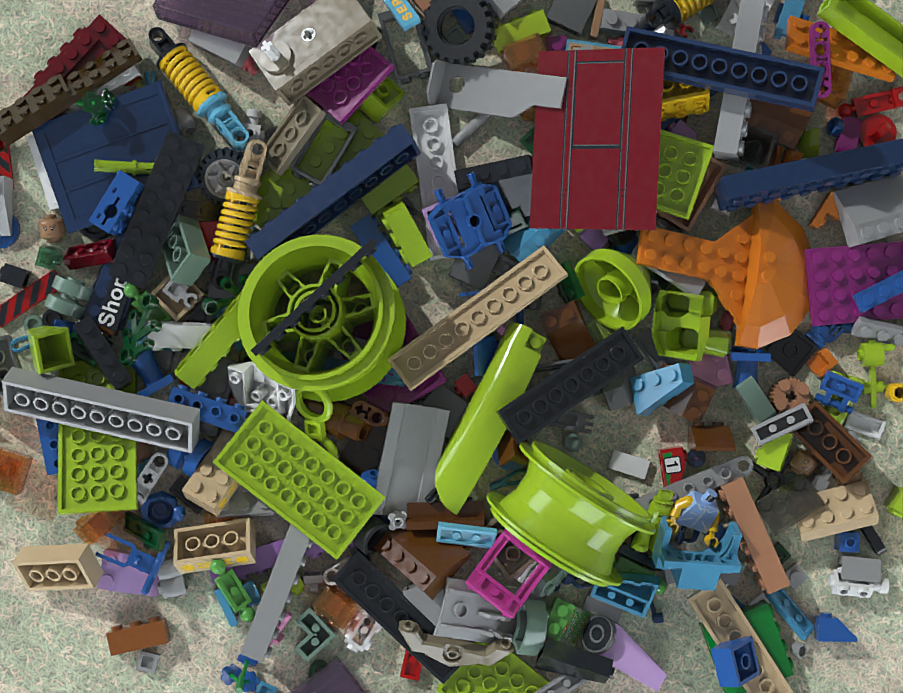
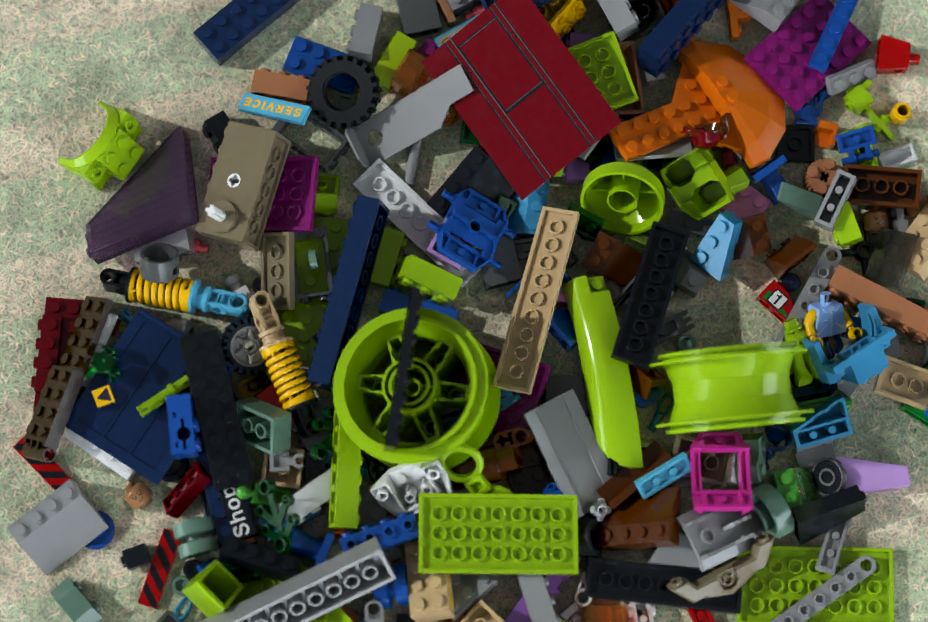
camera: 45 degrees left, 10 degrees down
(49, 257) = (154, 519): clear green brick -> none
(78, 130) = (103, 396): none -> tile
(201, 58) = (160, 263): none -> dark grey piece
(275, 525) = (505, 593): clear piece -> none
(326, 147) = (313, 259): none -> sand green tile
(464, 386) = (567, 364): red plate -> none
(628, 464) = (743, 327): white tile -> none
(656, 617) = (862, 430): dark blue hand -> none
(723, 293) = (710, 134): none -> hair

